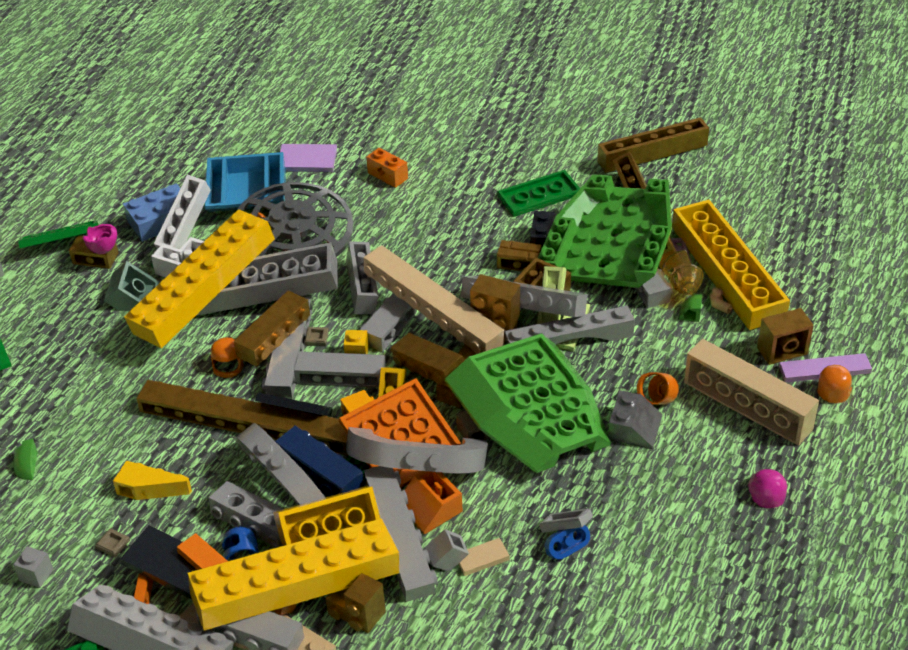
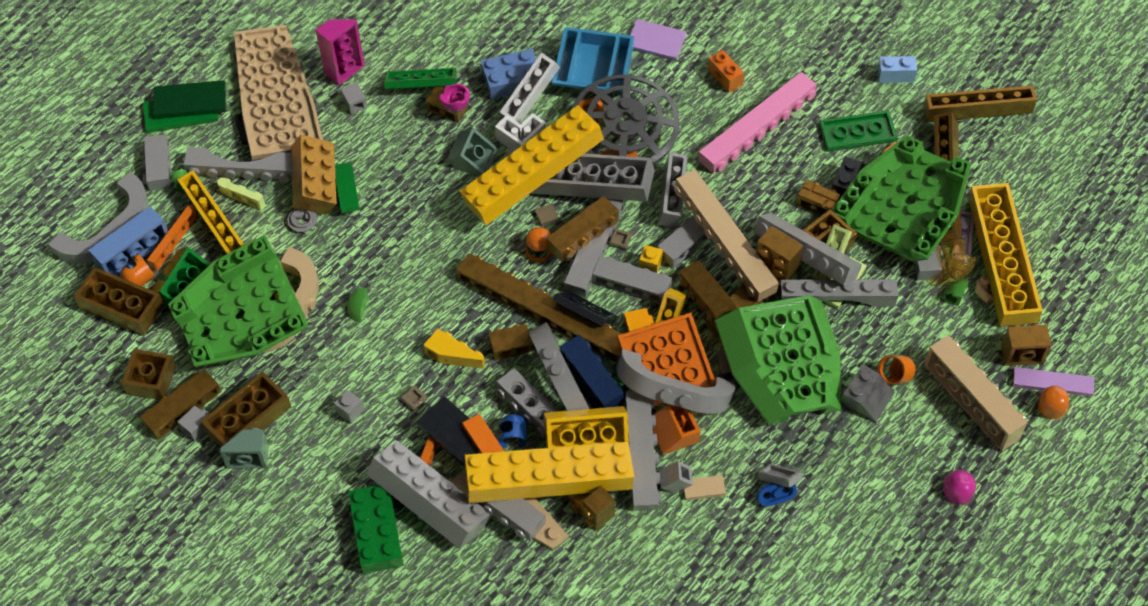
camera: 15 degrees right, 15 degrees up
(216, 458) = (510, 342): none -> pearl gold brick
(228, 329) = (546, 215): none -> dark tan tile
(433, 204) = (757, 123): none -> bright pink brick
(560, 134) = (897, 69): none -> light blue brick

